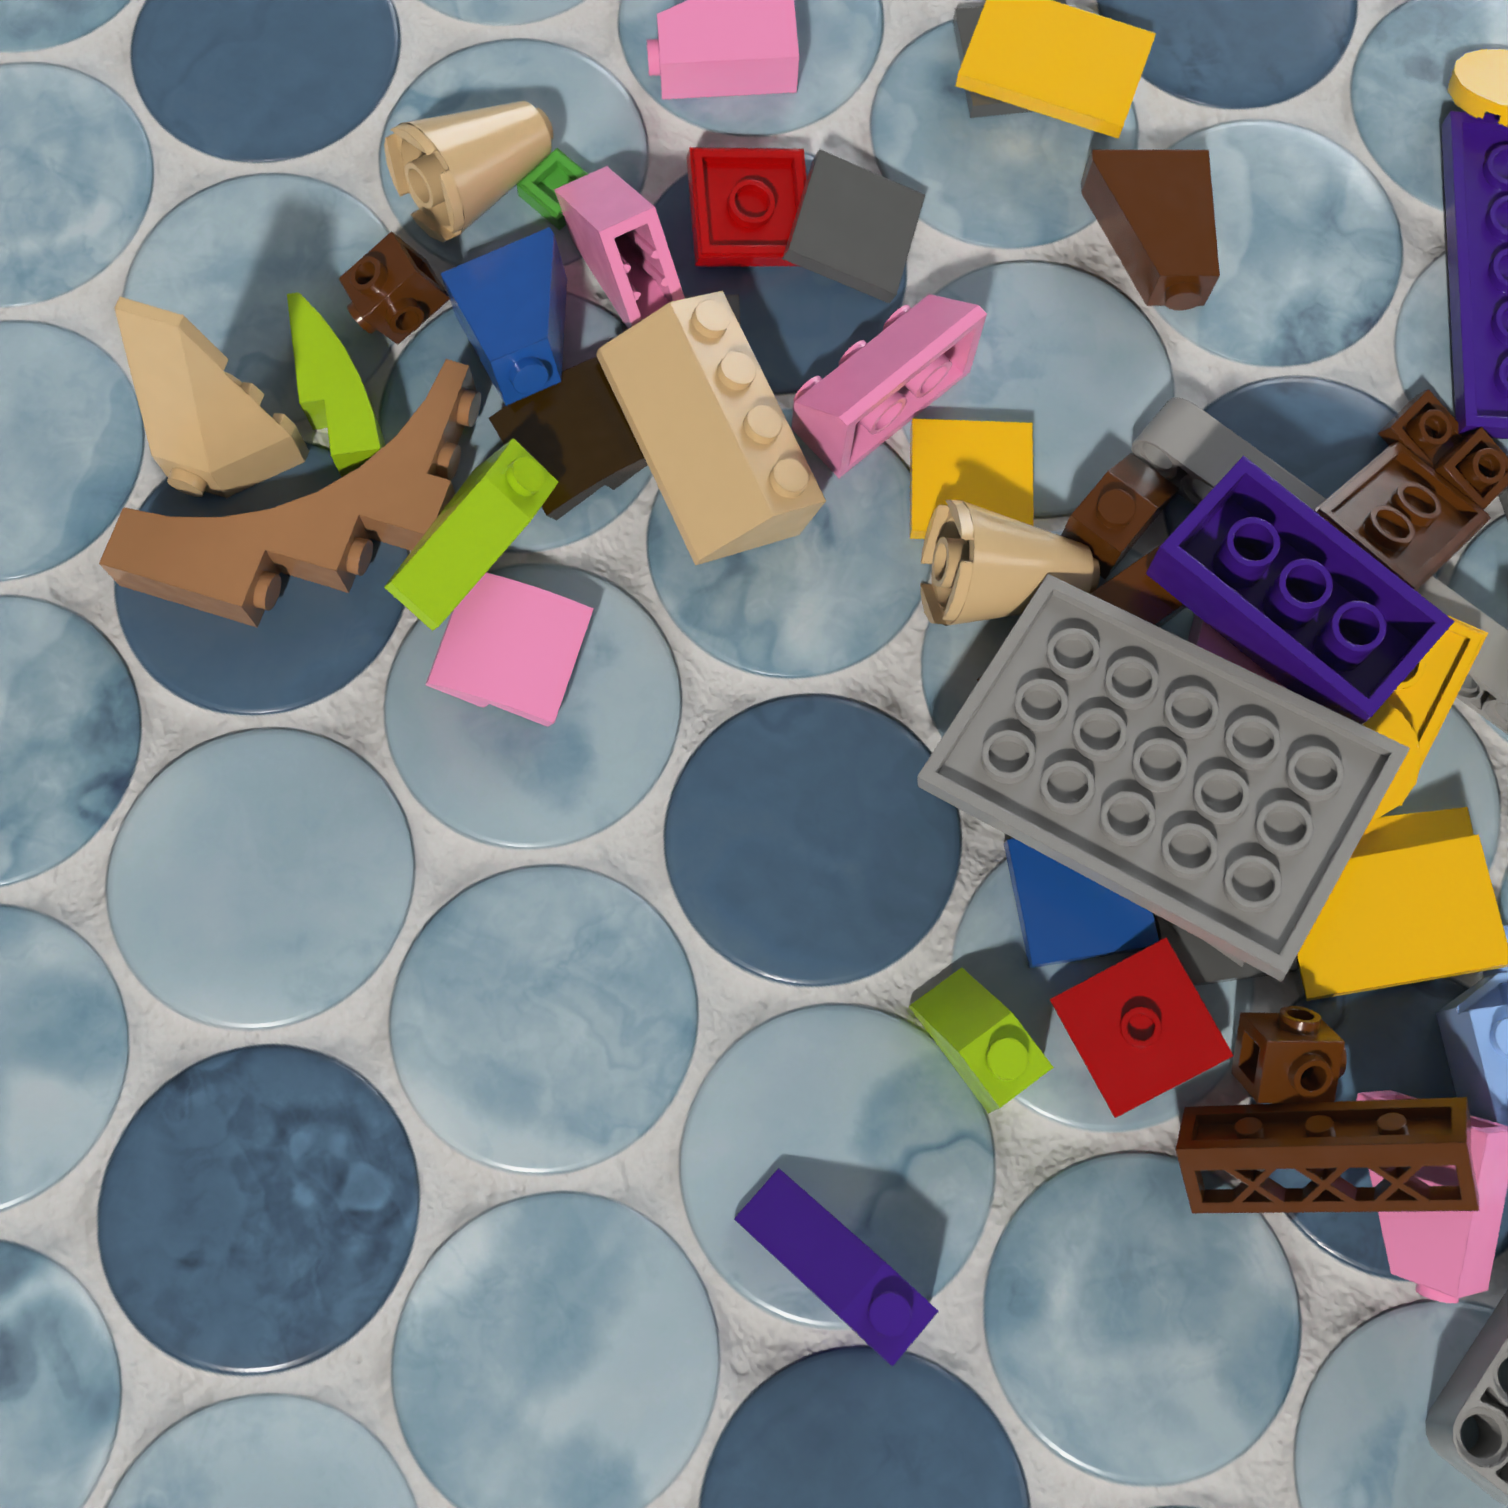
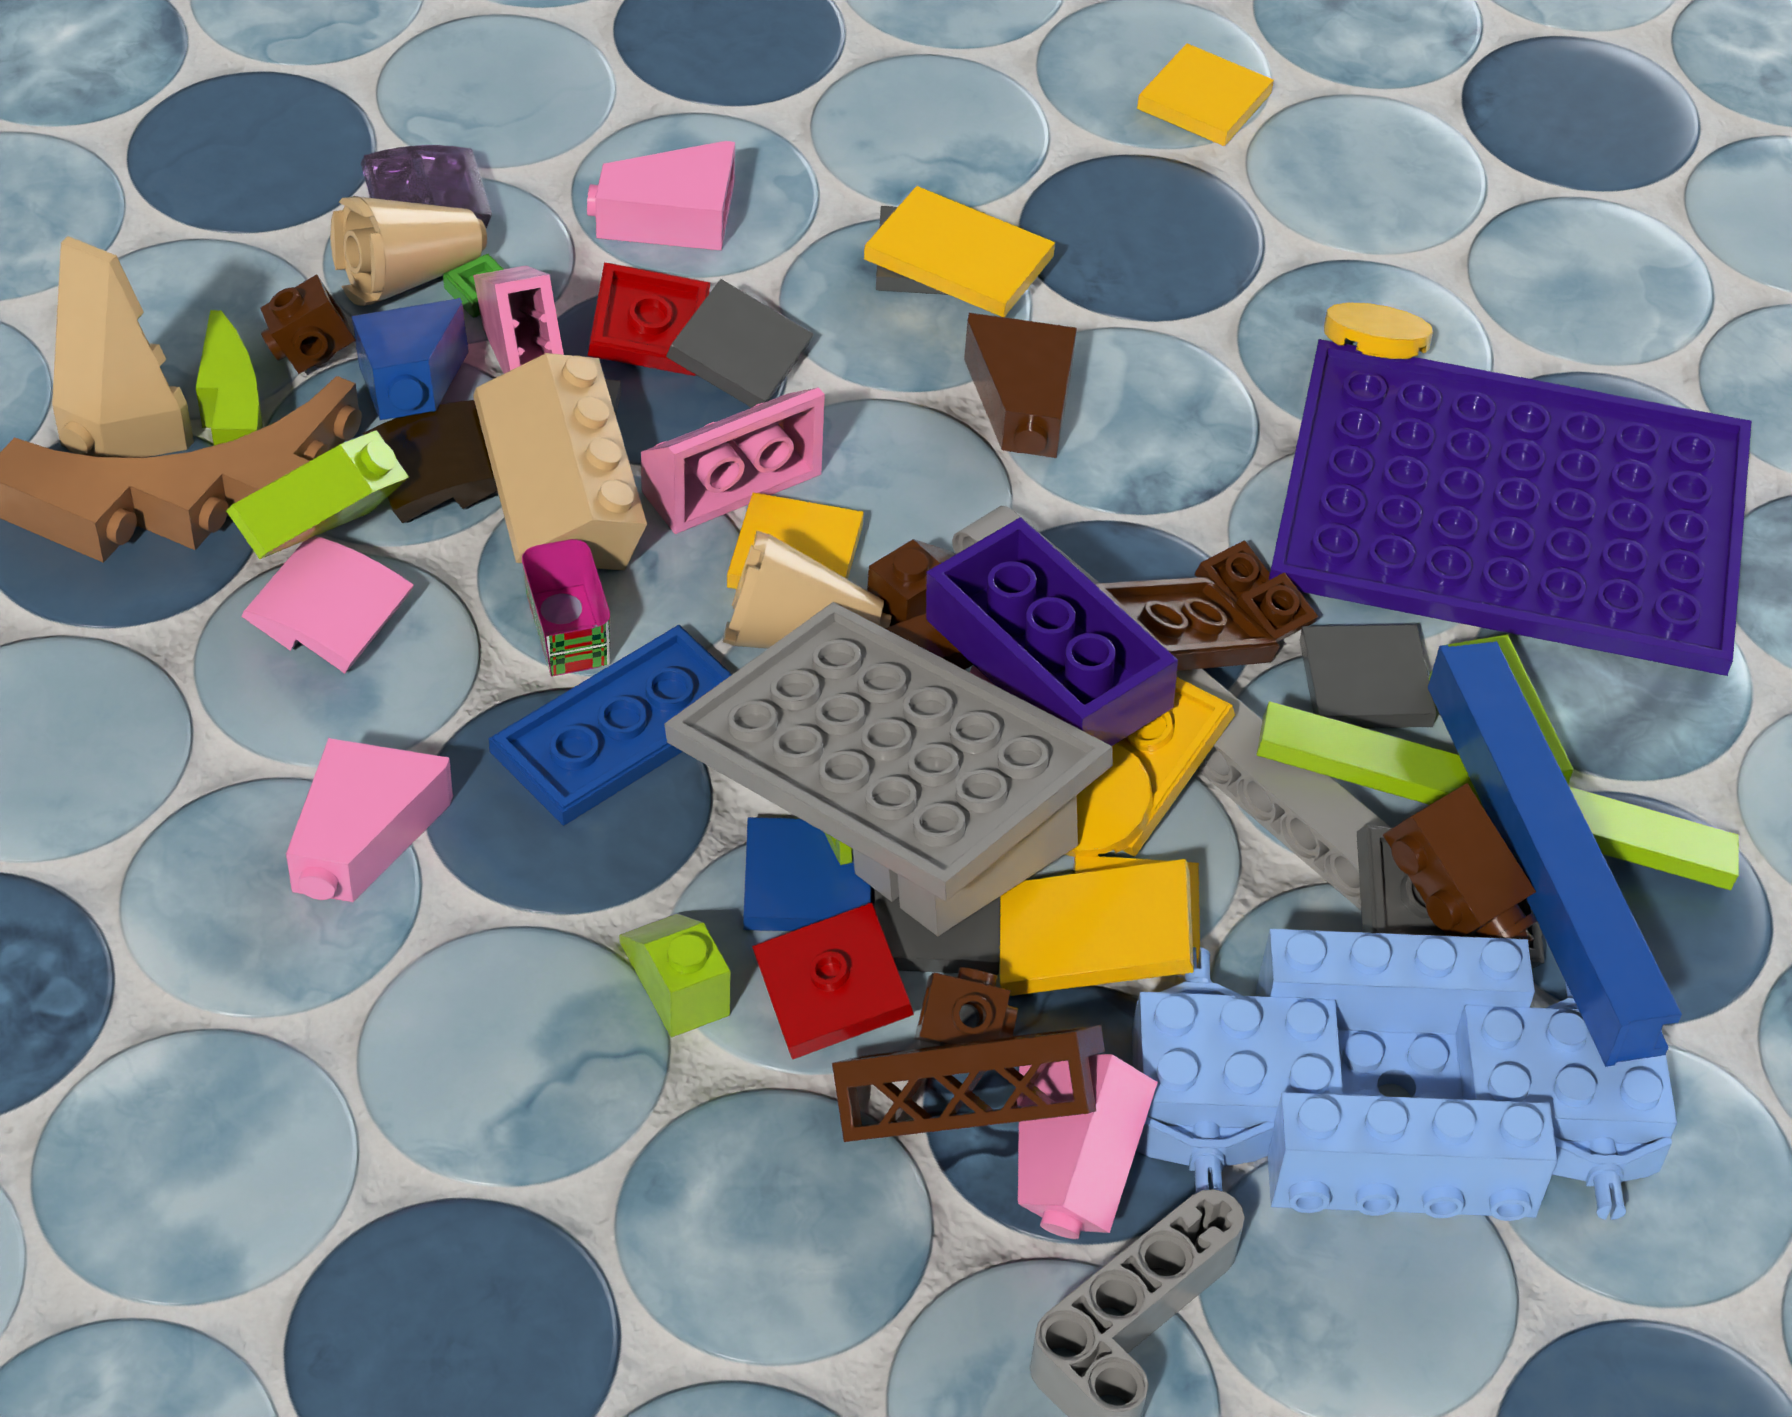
camera: 10 degrees right, 25 degrees down
(468, 65) = (428, 176): none -> clear purple slope
(614, 920) = (363, 816): none -> bright pink slope
(760, 560) = (569, 570): none -> dark pink piece
(836, 1267) = (491, 1124): dark purple slope -> none
(846, 738) = (607, 726): none -> blue tile

